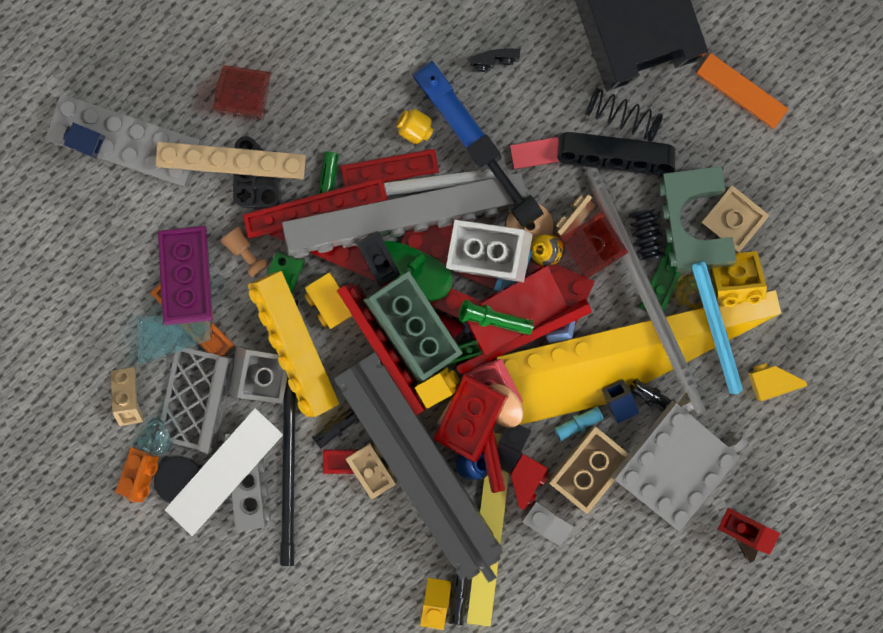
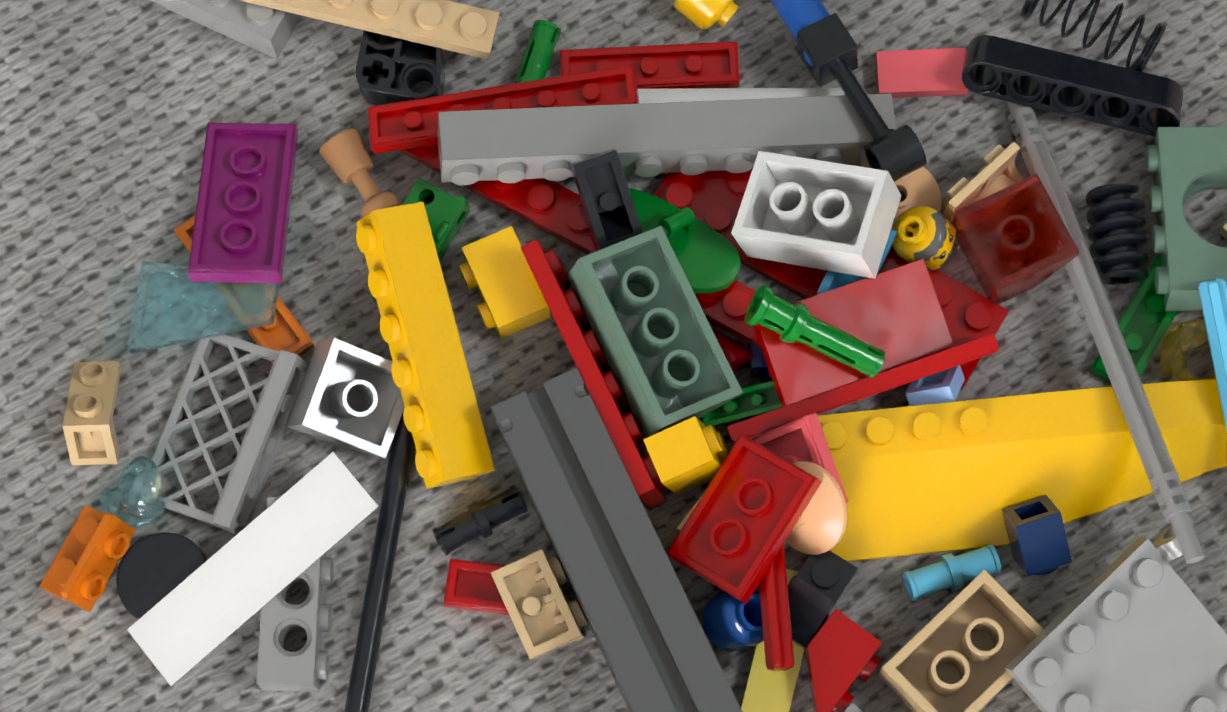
camera: 10 degrees right, 15 degrees down
(651, 395) = (1098, 535): black pin -> none

